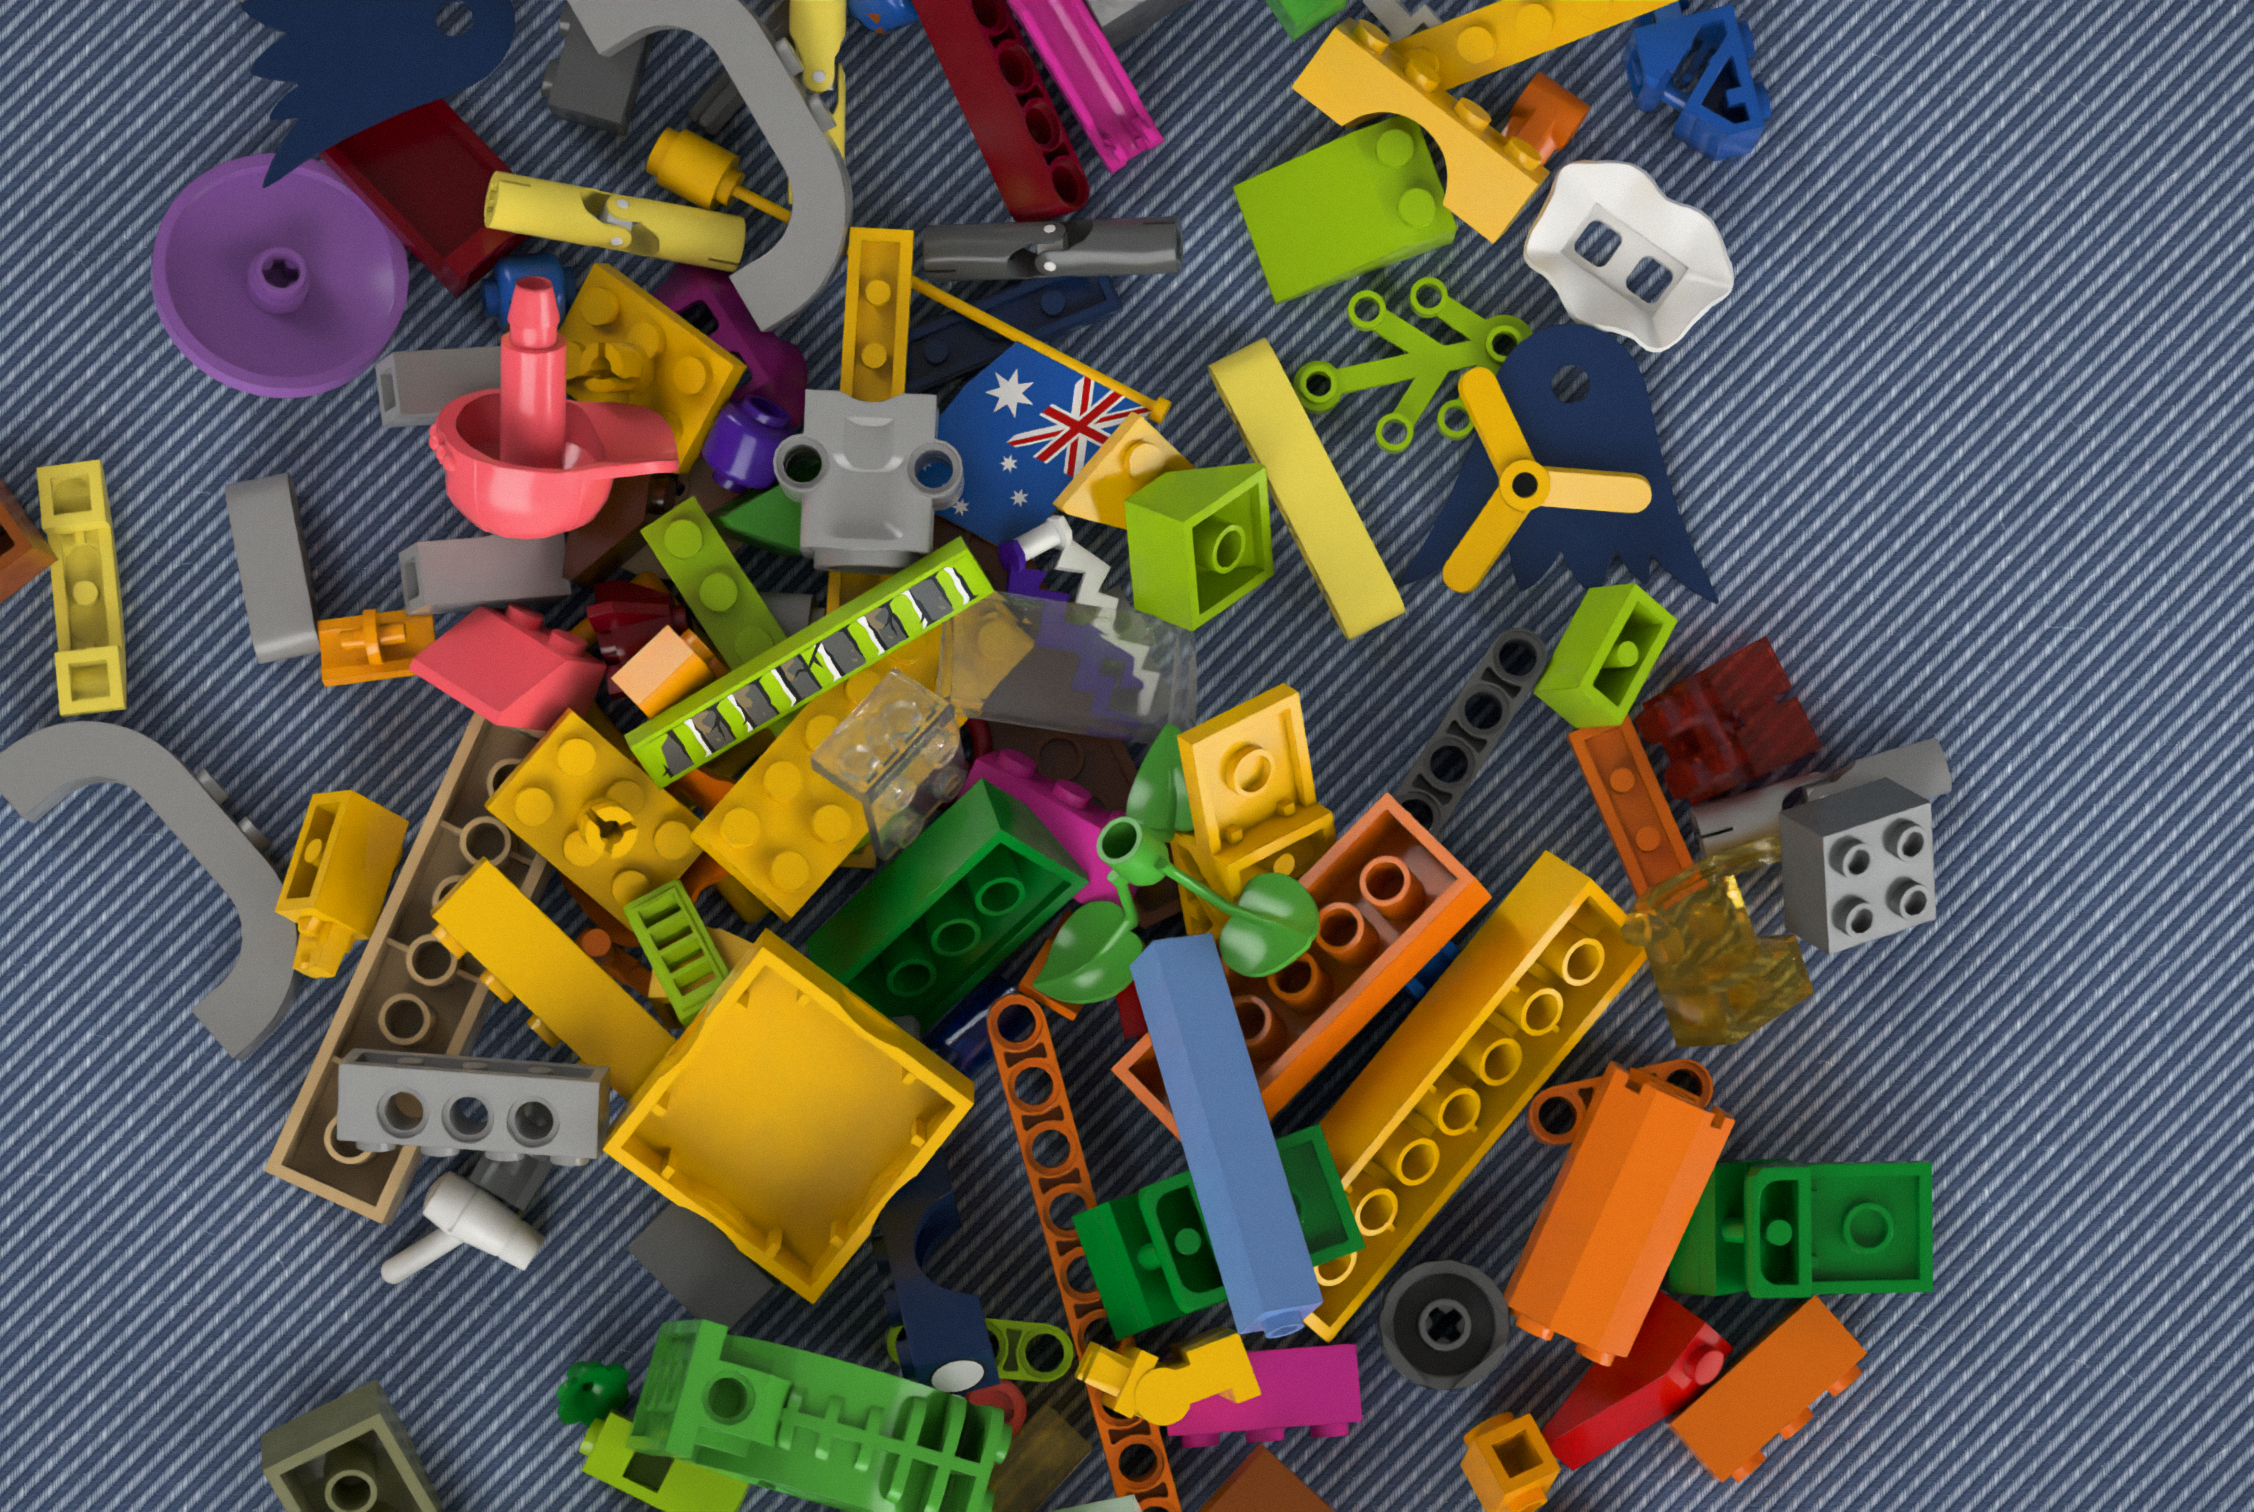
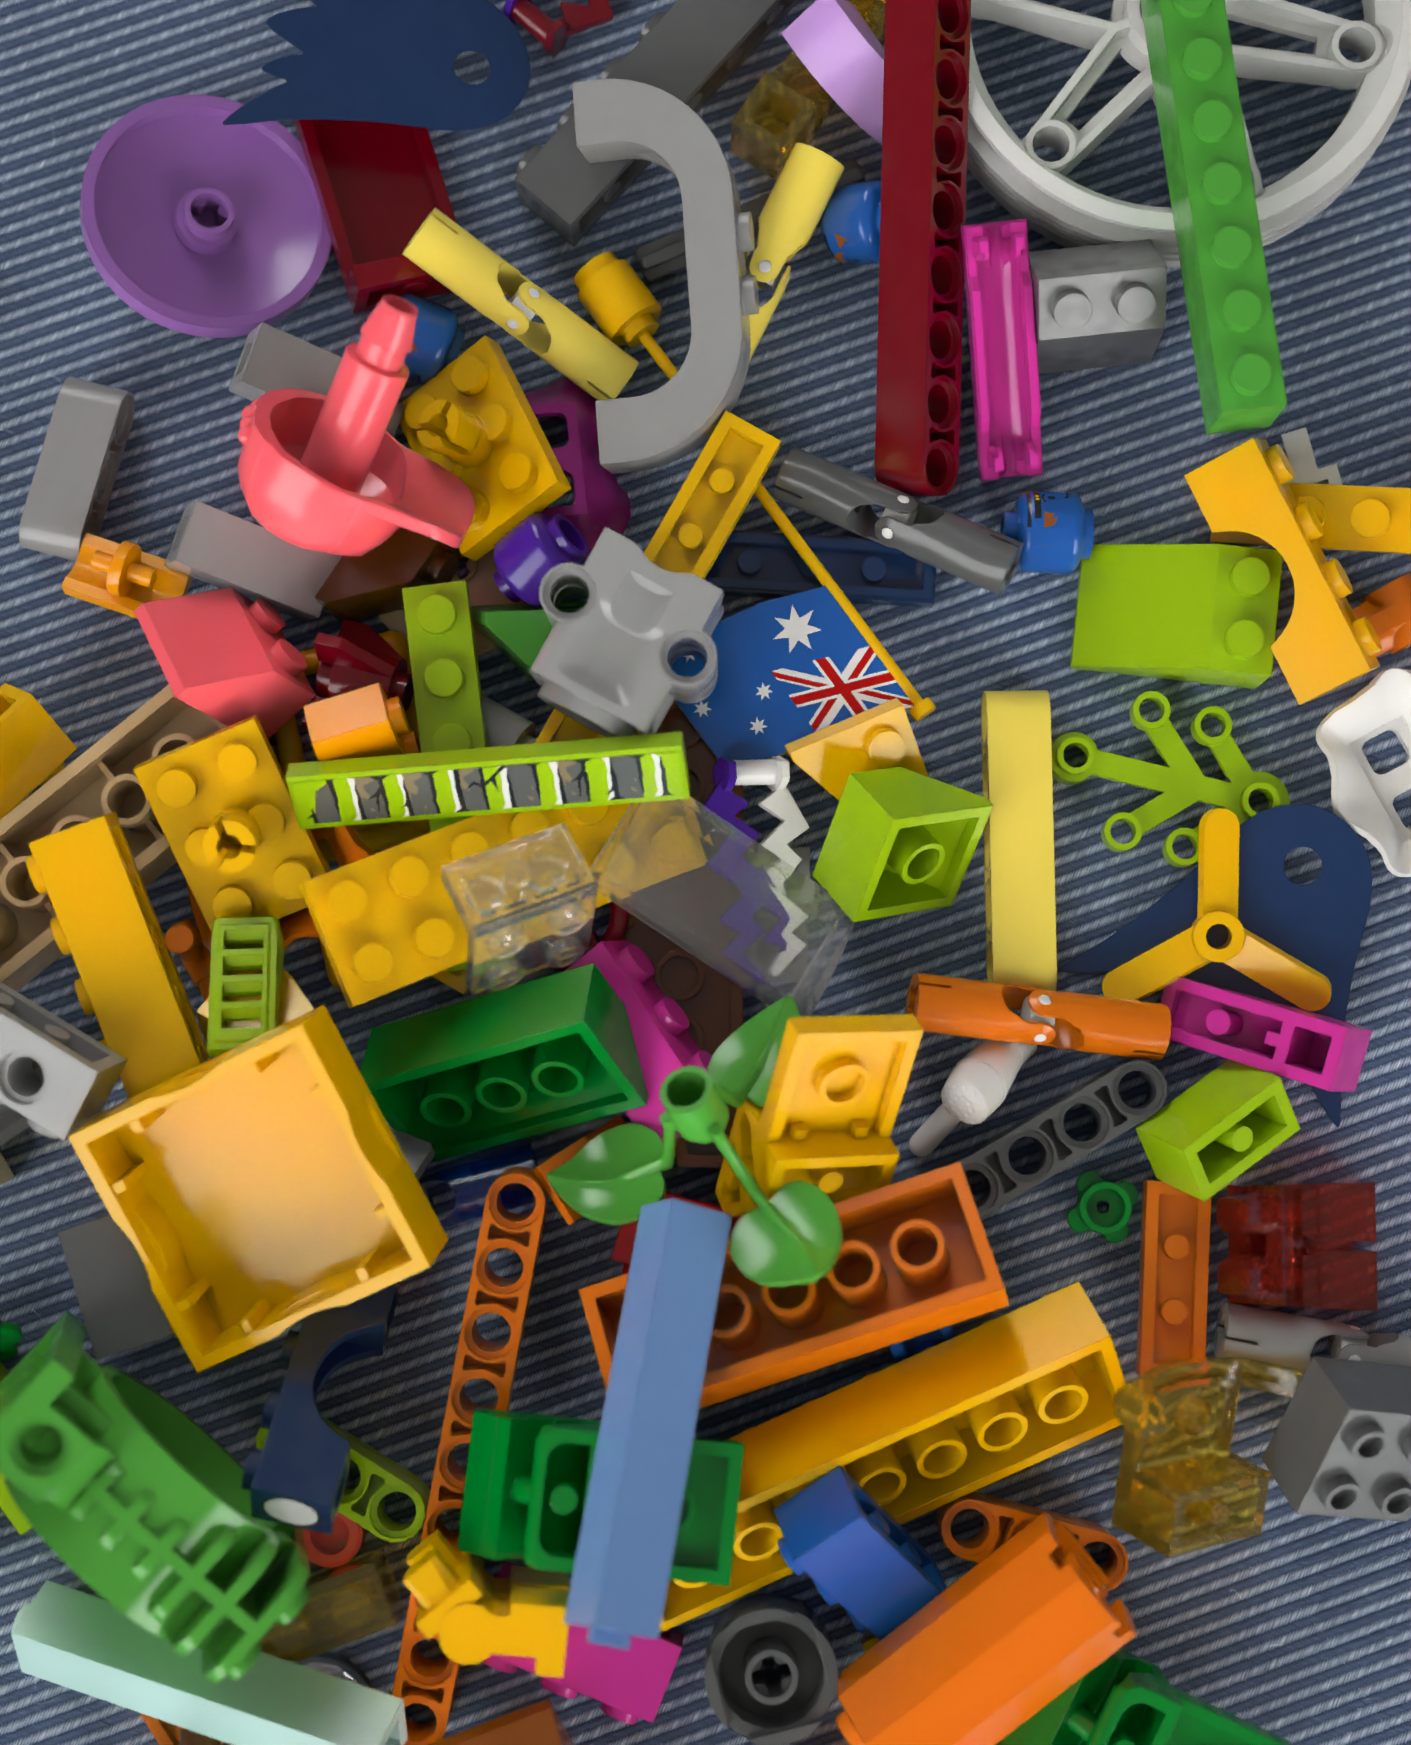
camera: 30 degrees right, 0 degrees up
(1196, 189) = (1053, 530): none -> blue head
(1373, 723) = (972, 1091): none -> white piece
(1441, 620) = (1046, 1017): none -> orange piece
(1465, 1181) = (856, 1554): none -> blue brick
(1551, 763) = (1114, 1221): none -> green plate
(1607, 552) = (1267, 1034): none -> dark pink slope

